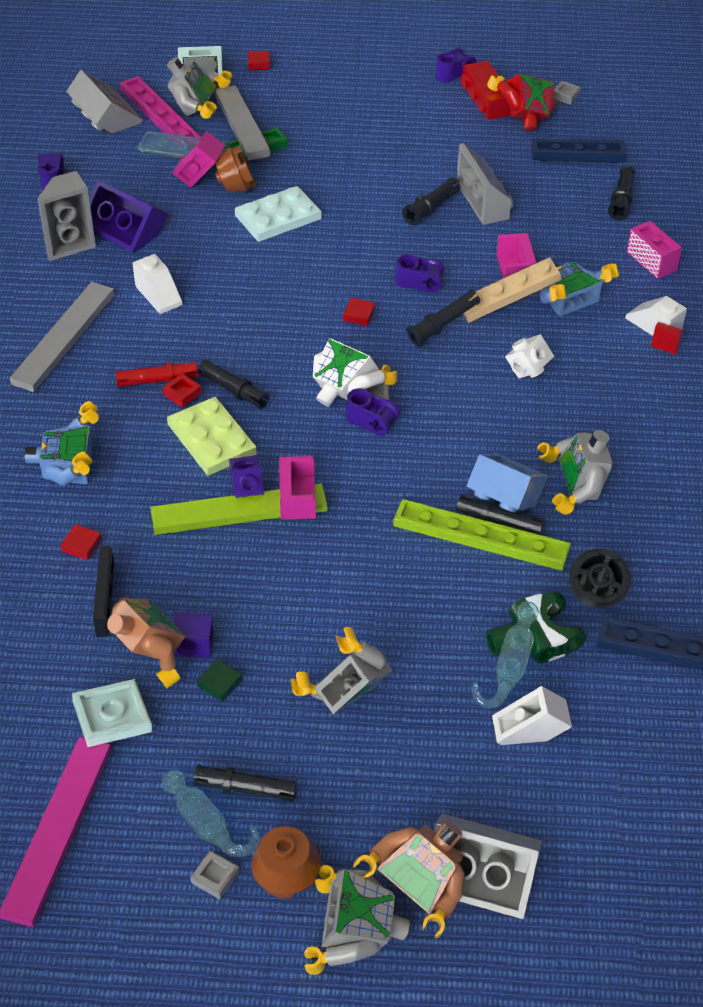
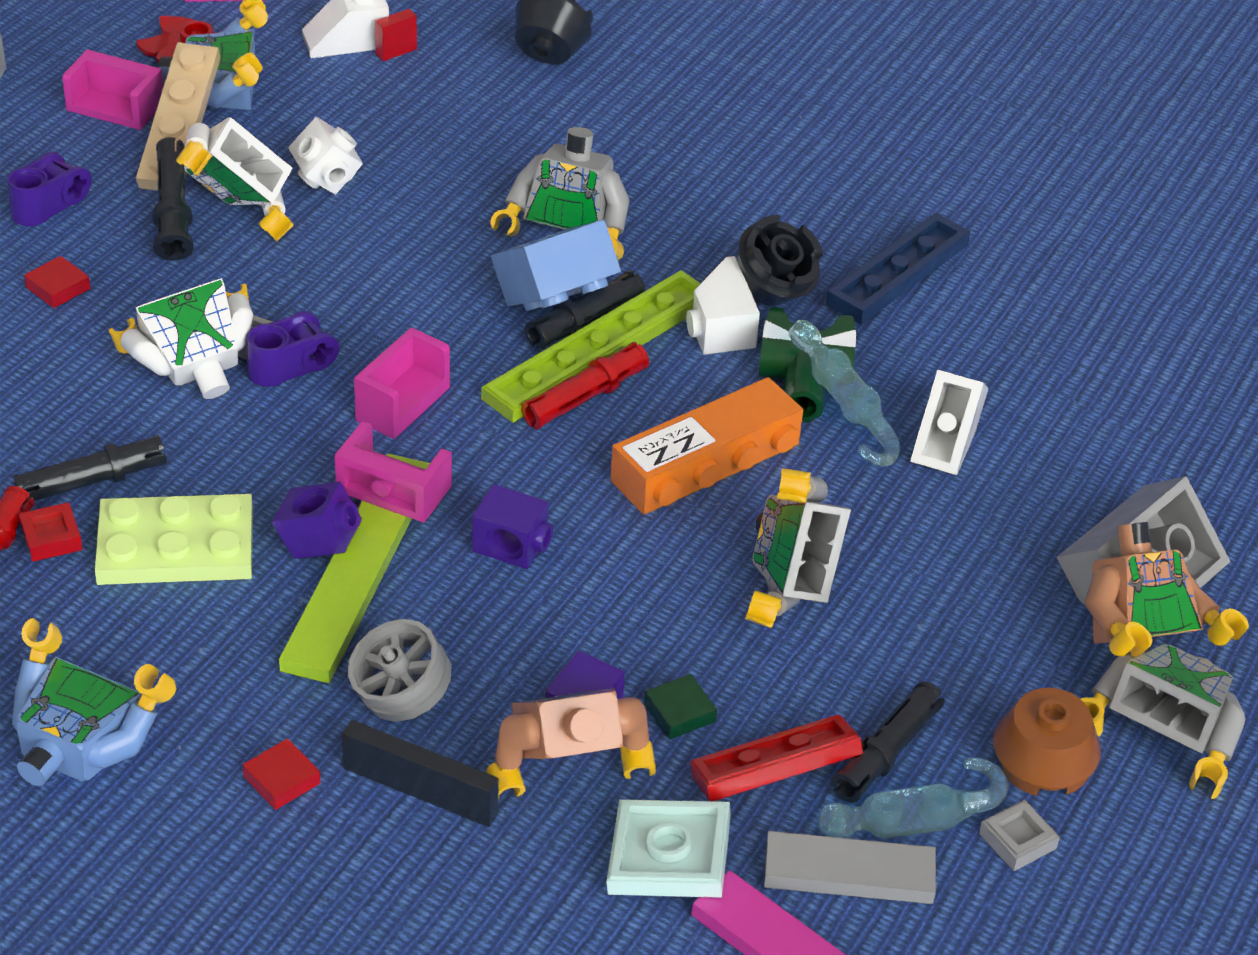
camera: 65 degrees left, 5 degrees down
(146, 801) = (850, 867): none -> light grey tile
(163, 552) = (406, 691): none -> light grey wheel
(199, 734) = (775, 757): none -> red tile
(299, 553) = (511, 527): none -> dark purple brick
(374, 464) = (402, 382): none -> dark pink panel
(424, 611) = (705, 445): none -> orange brick
(442, 542) = (600, 377): none -> red pin
(478, 326) = (238, 170): none -> white torso
(544, 572) = (724, 311): none -> white slope
(593, 261) = (173, 30): none -> red plate

